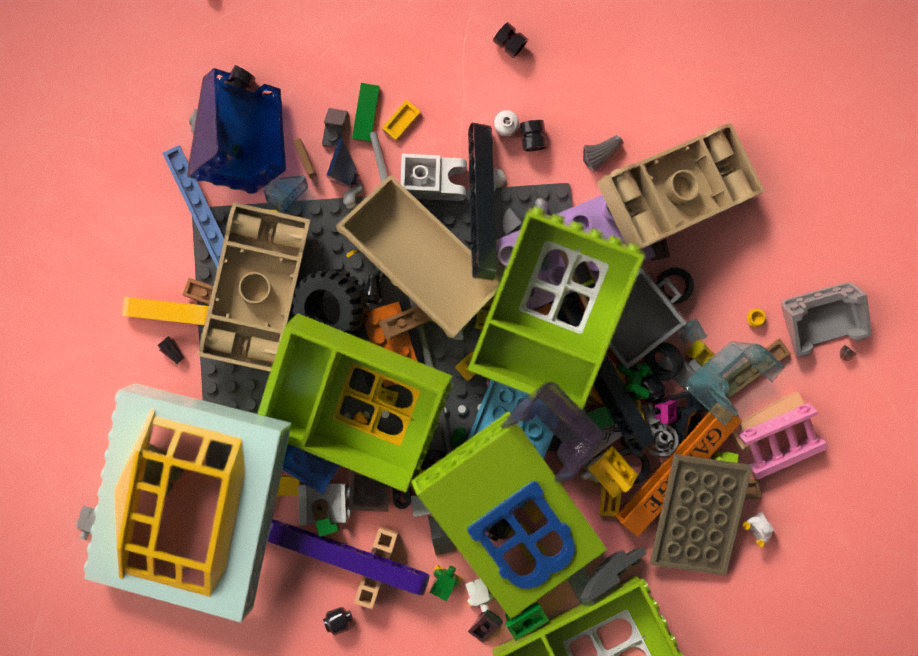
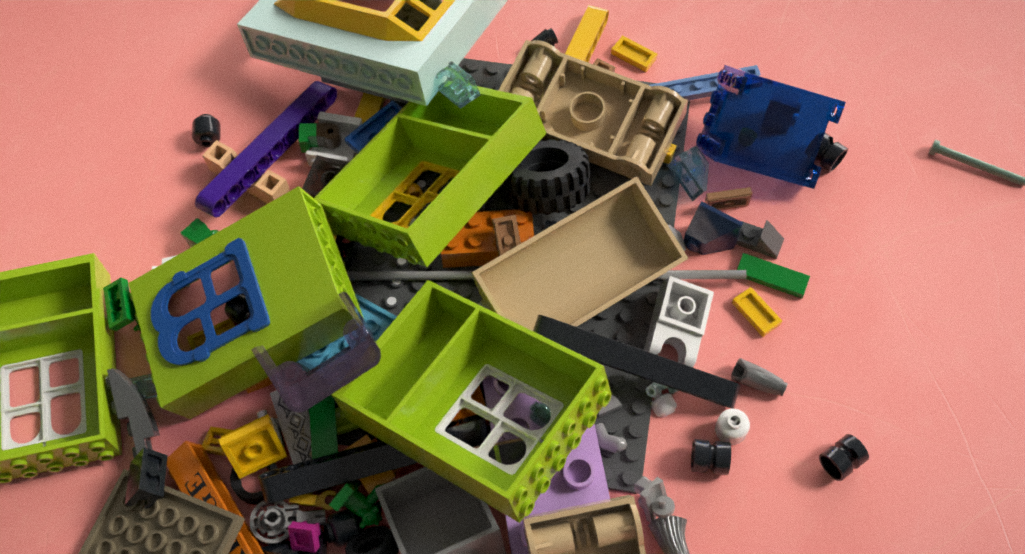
camera: 105 degrees right, 25 degrees down
(164, 265) = (634, 53): none -> yellow tile
(273, 399) = (459, 86): none -> clear light blue hinge
(457, 437) = (360, 286): green arm -> none
(459, 115) = (758, 378): none -> dark grey piece
(485, 625) = (136, 268): black slope -> none
(578, 168) = (654, 498): none -> light grey hips
(659, 540) = (146, 478): none -> black hinge

